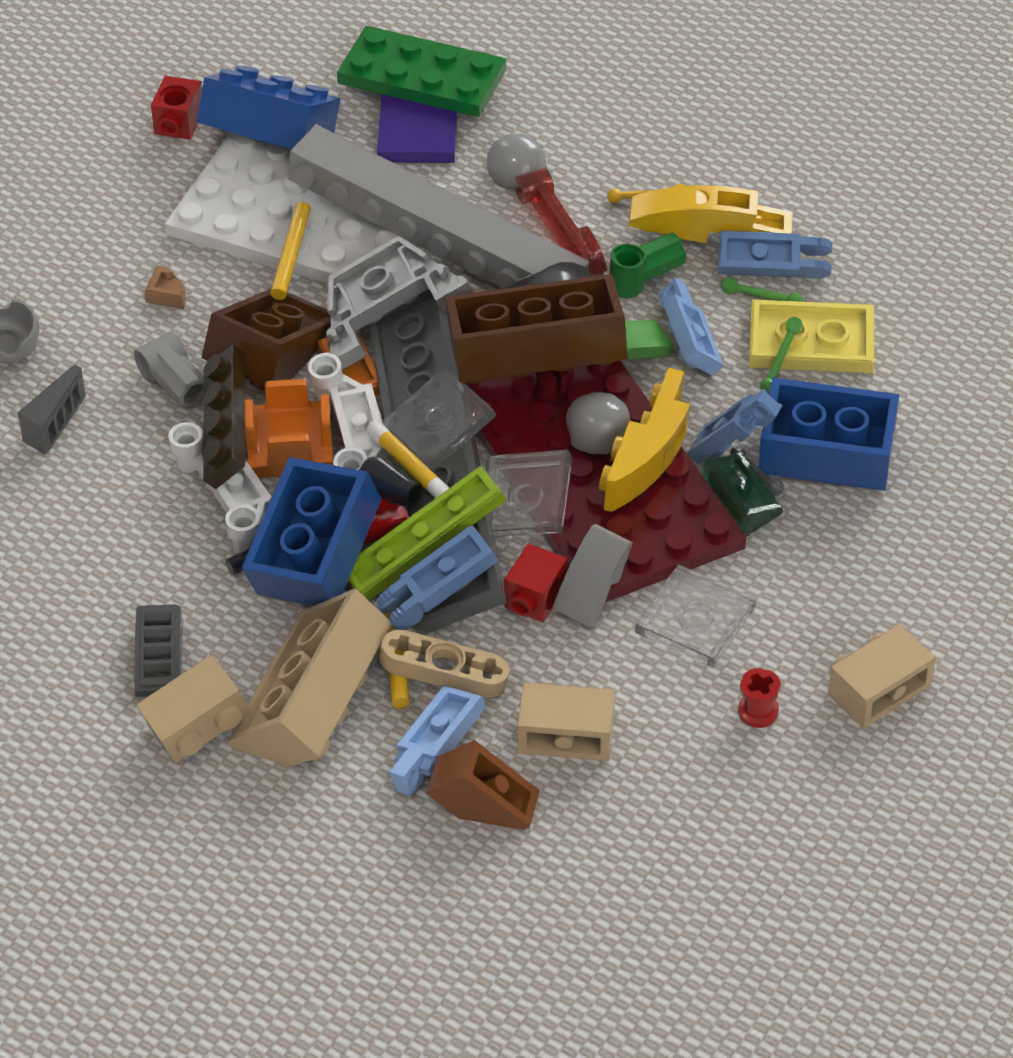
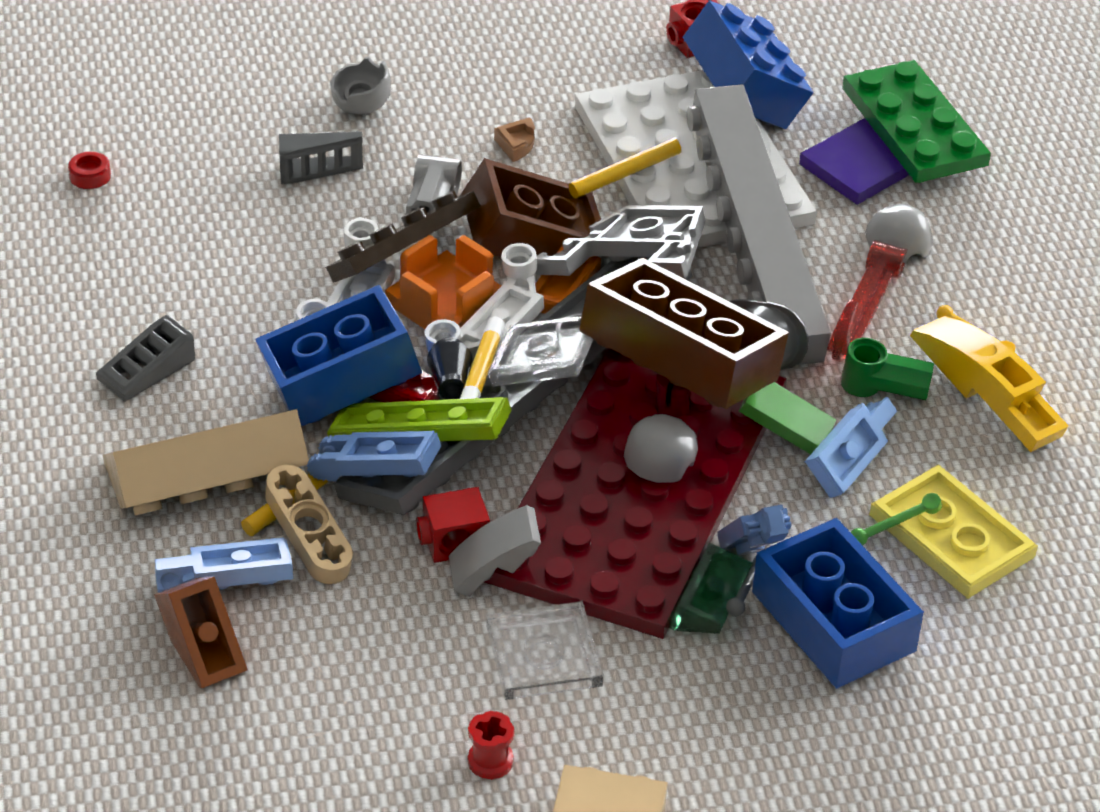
camera: 45 degrees right, 5 degrees down
(194, 709) = (99, 408): tan brick -> none
(534, 492) = (537, 456): clear tile -> none
(566, 721) = (329, 635): tan brick -> none
(647, 445) = (665, 495): yellow slope -> none
(731, 286) = (942, 445): bright green hinge -> none
(772, 254) = (1003, 443): medium blue hinge -> none

